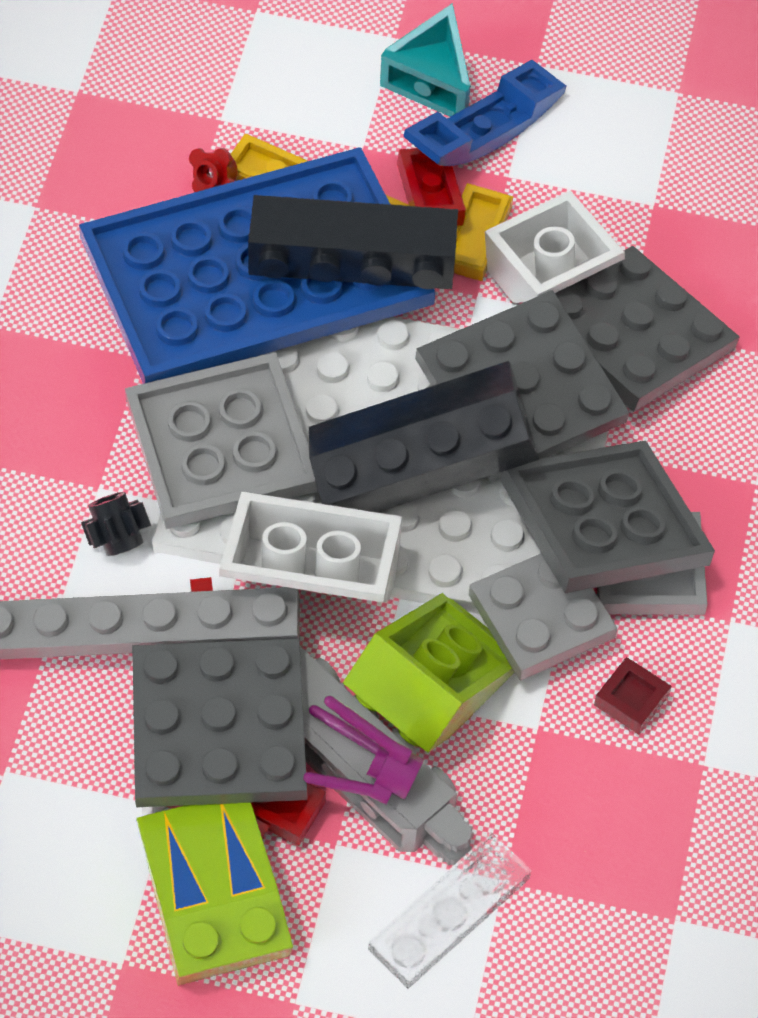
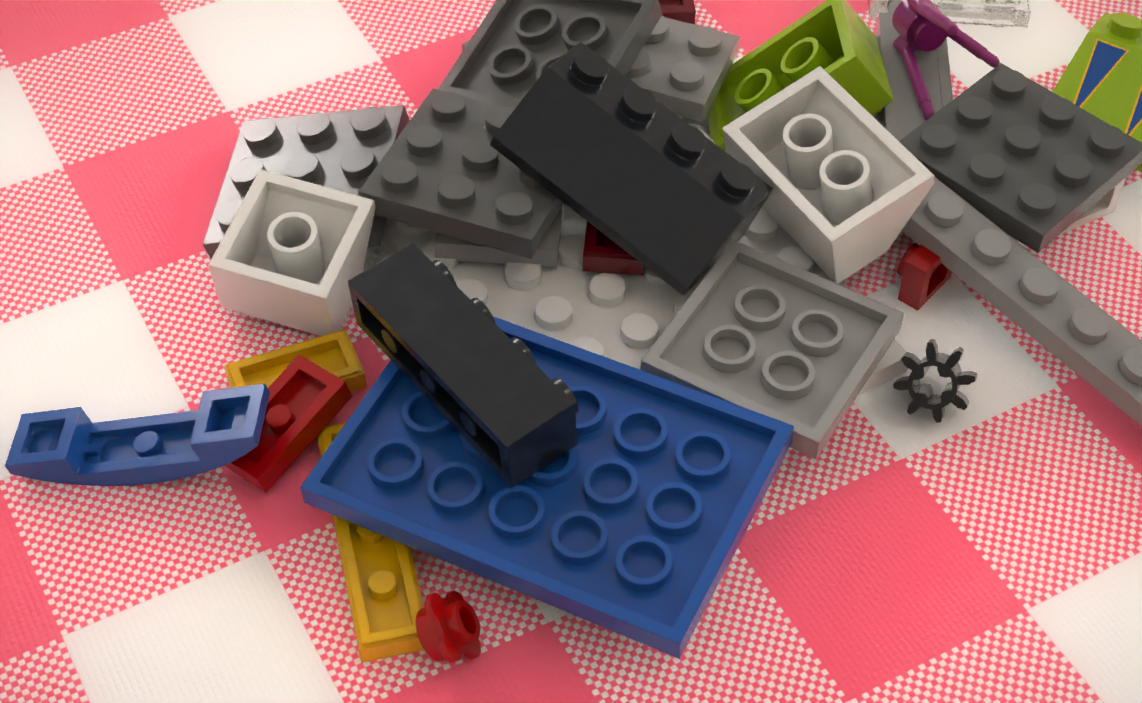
camera: 130 degrees left, 10 degrees down
(429, 65) = (103, 520): teal slope -> none

